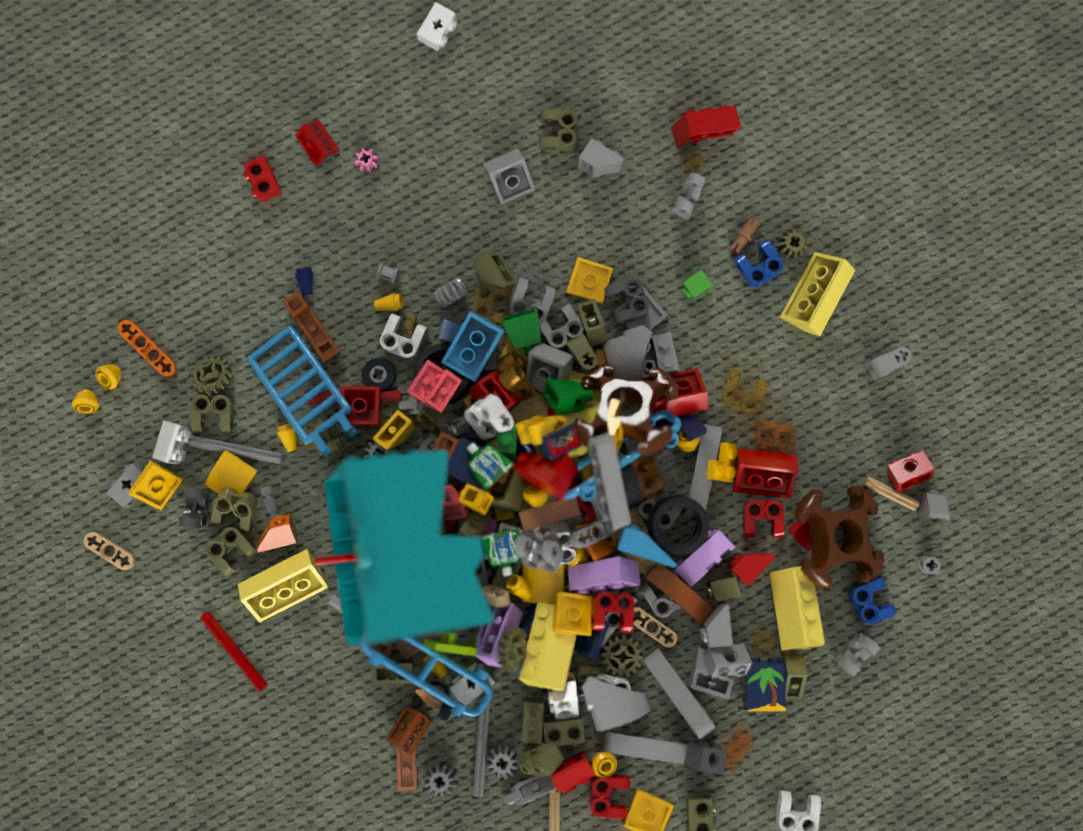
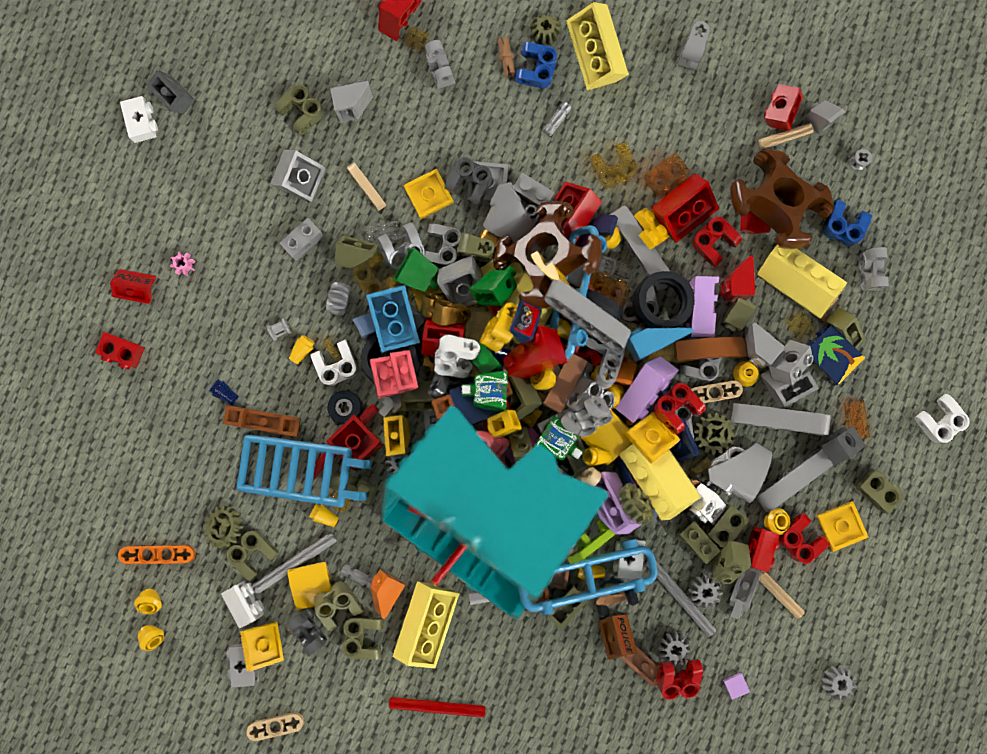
camera: 45 degrees left, 0 degrees up
(422, 810) = (685, 682): none -> red piece
(466, 225) = (302, 239): none -> light grey brick
(477, 29) = (170, 92): none -> dark grey brick
(549, 232) = (366, 186): none -> tan beam
(592, 322) = (461, 219): olive brick -> none
(683, 633) = (741, 375): none -> yellow cone
(696, 285) = (507, 123): bright green brick -> none
(736, 317) = (557, 118): none -> light grey axle

